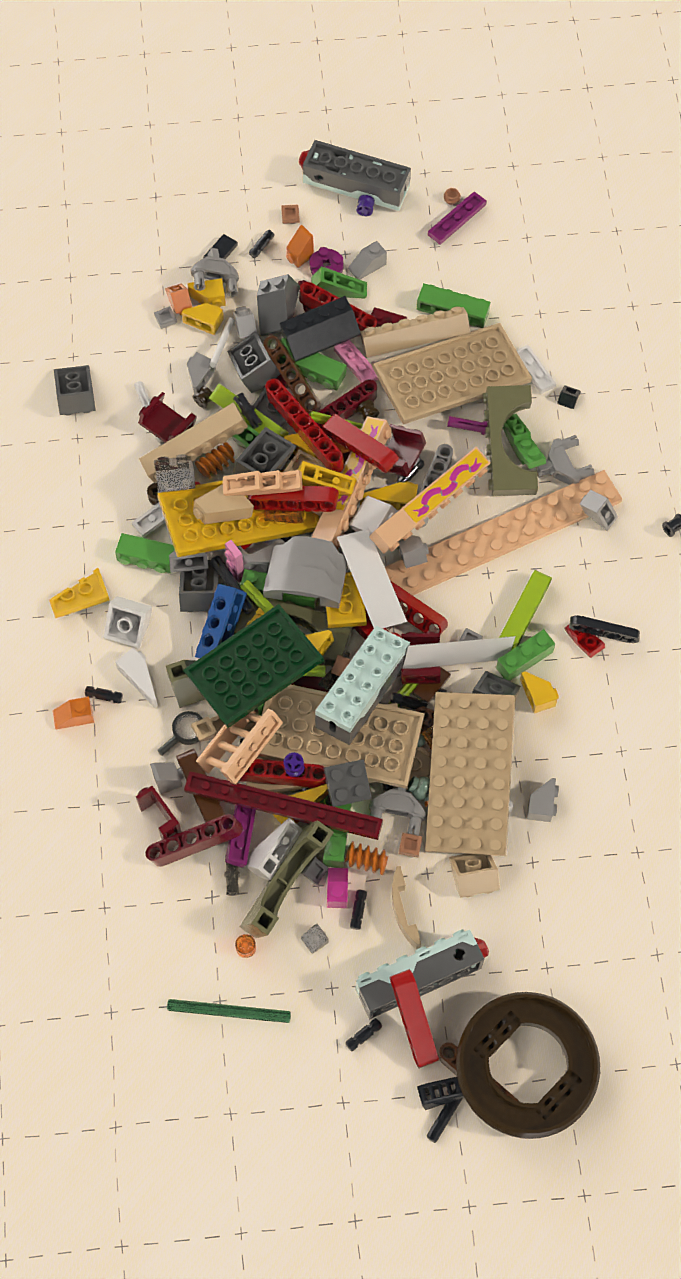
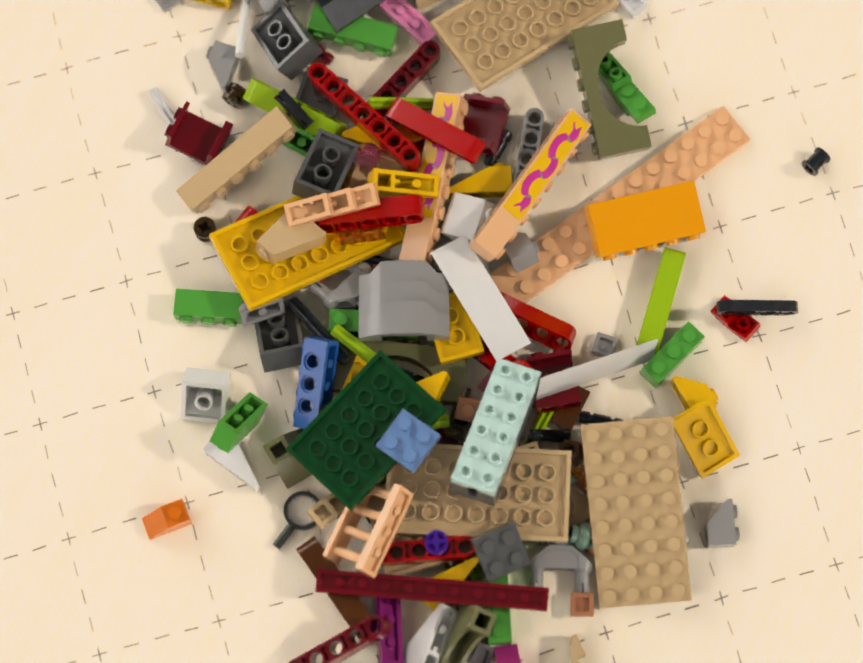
camera: 10 degrees left, 10 degrees up
(74, 390) = (78, 112): dark grey slope -> none
(85, 594) = (146, 371): yellow wing -> none
(103, 694) = (196, 488): black axle -> none
(149, 521) = (204, 264): white plate -> none
(149, 643) = (238, 422): none -> bright green brick
(149, 796) = (310, 639): dark red panel -> none
(167, 776) = (291, 576): light grey slope -> none
(174, 473) = (224, 206): clear smoke brick -> none
(215, 460) = (266, 175): orange piece -> none
(234, 560) = (316, 303): bright pink plate -> none
(286, 677) = (408, 441): none -> medium blue plate
(290, 365) = (346, 54): reddish brown beam -> none
(301, 452) = (368, 154): none -> clear pink plate
(366, 858) = (536, 629): orange piece -> none
(367, 409) = (434, 79): dark brown wheel -> none
(467, 424) = (536, 76): magenta pin -> none
(474, 874) = (659, 626): tan slope -> none
(493, 684) = (645, 401): dark grey plate -> none
(521, 544) = (645, 220): none -> light orange brick
(541, 725) = (705, 438): none -> yellow plate
(559, 464) = (670, 107): light grey connector -> none
(568, 397) = (666, 18): black slope -> none
(599, 509) = (726, 159): light grey slope -> none

